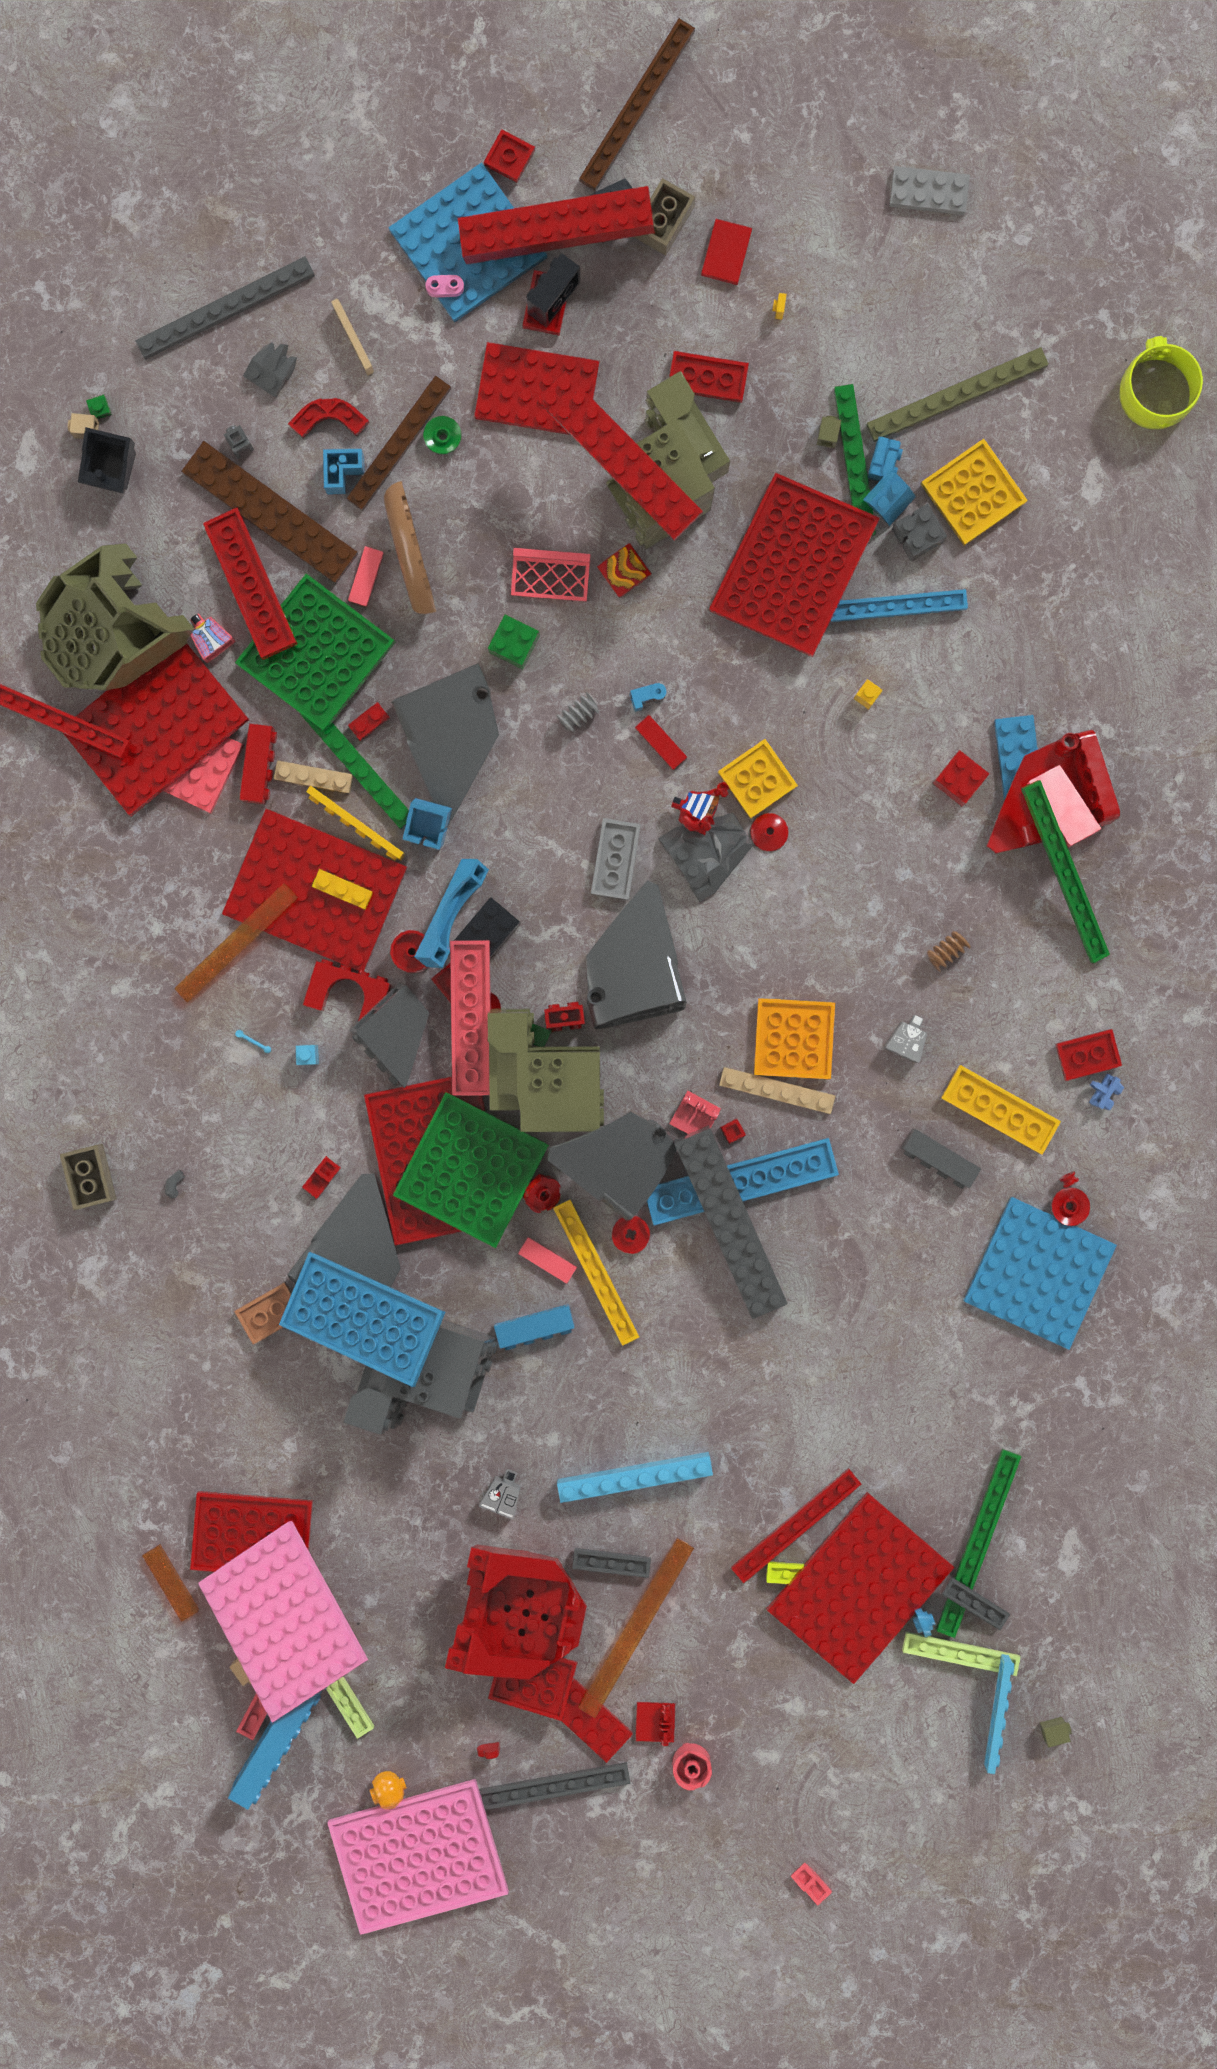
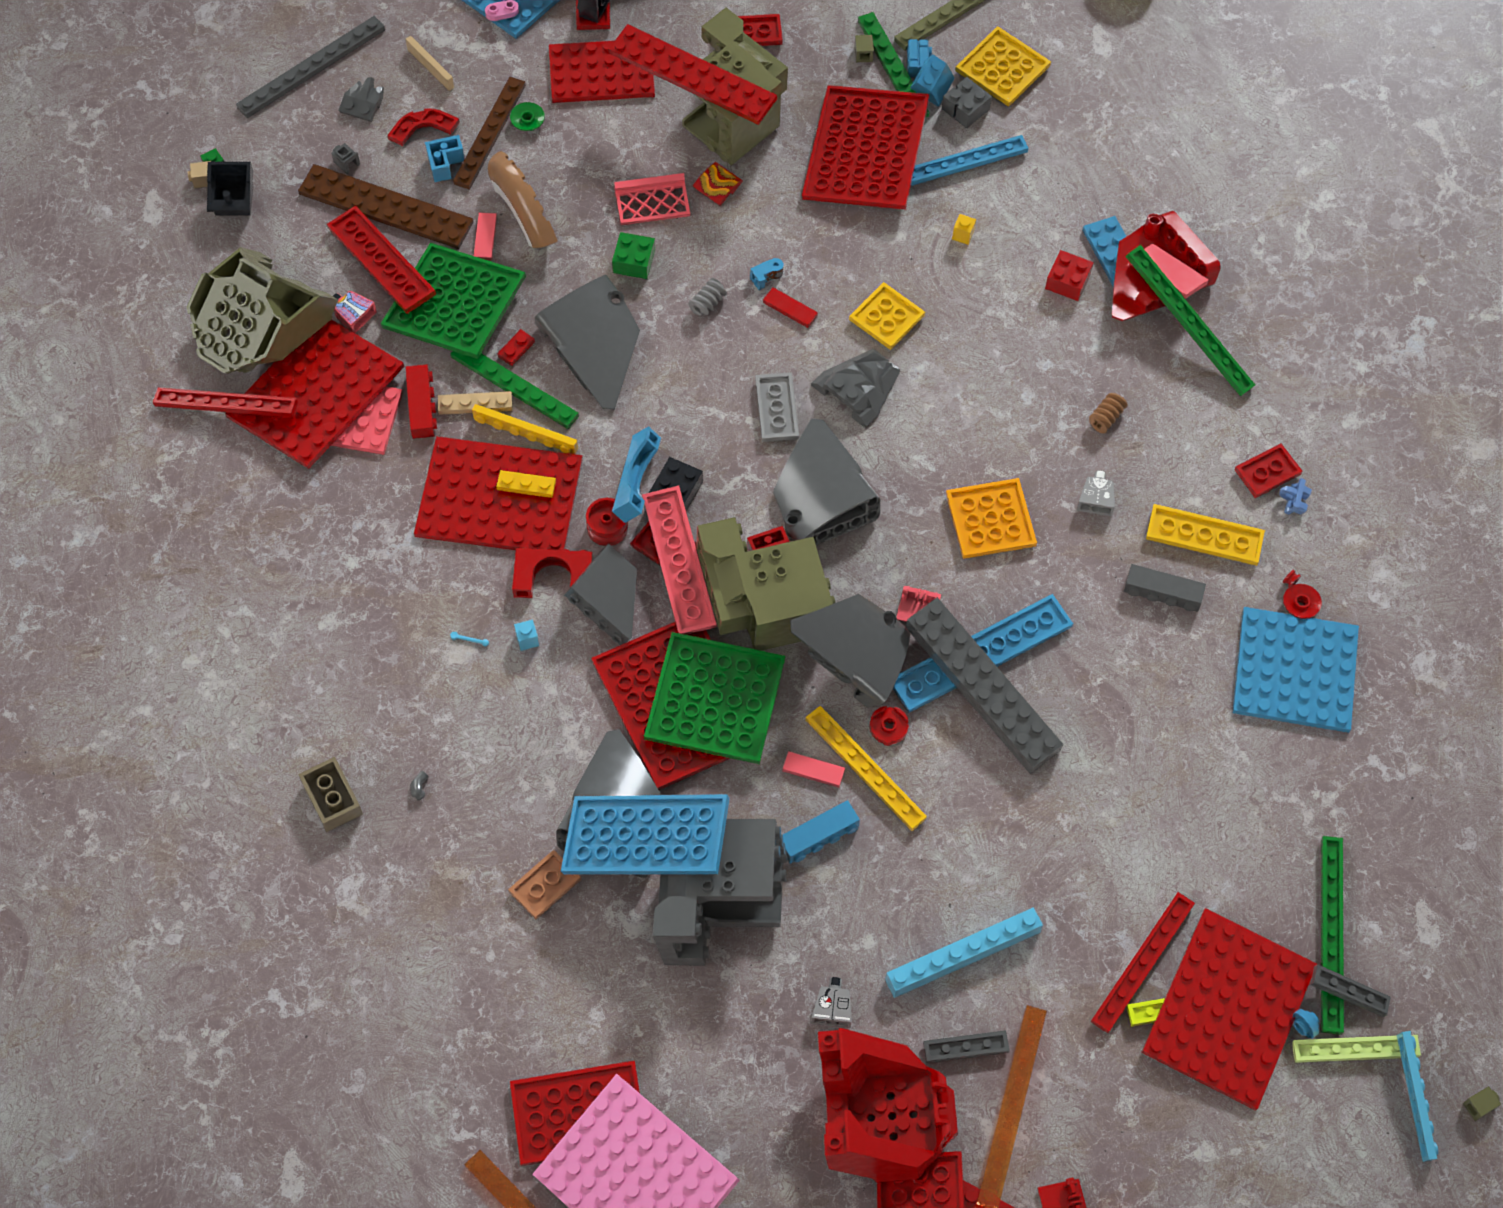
camera: 15 degrees left, 25 degrees down
(236, 943) = (433, 553): clear orange plate -> none
(321, 1177) = (567, 745): red slope -> none
(429, 821) = (593, 410): dark azure piece -> none
(536, 1187) = (782, 704): red plate -> none
(699, 808) = (842, 347): torso -> none
(733, 1131) = (960, 611): red tile -> none
(762, 839) = (908, 363): red dish -> none
(777, 1090) = (990, 567): tan plate -> none

